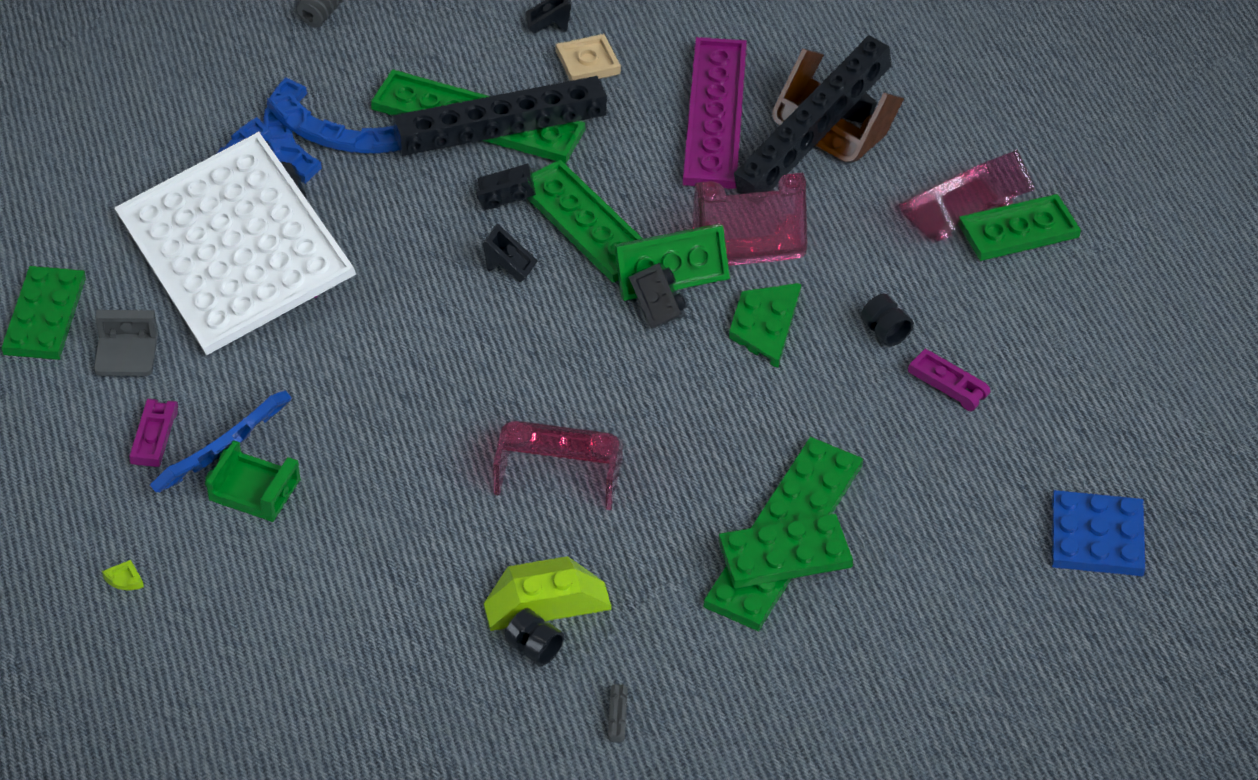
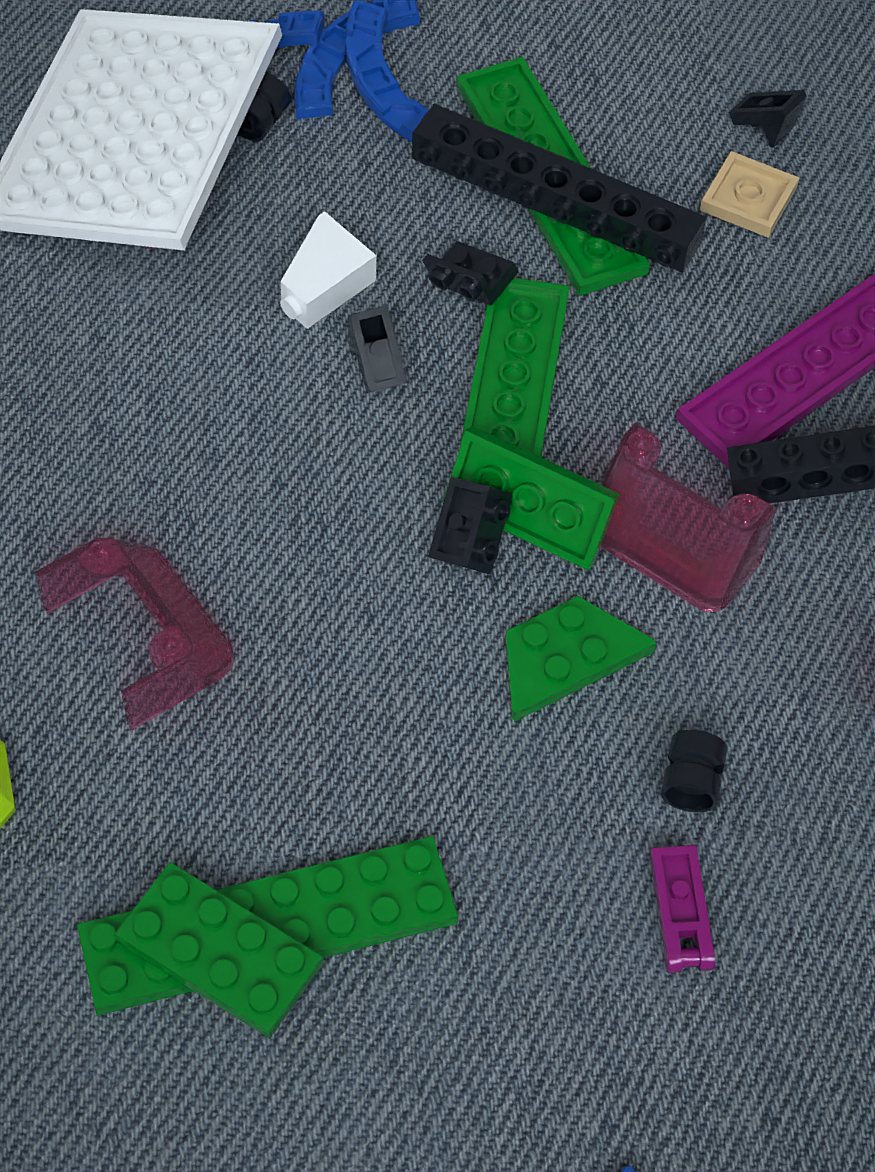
camera: 45 degrees right, 10 degrees up
(428, 238) = (325, 272): none -> white slope

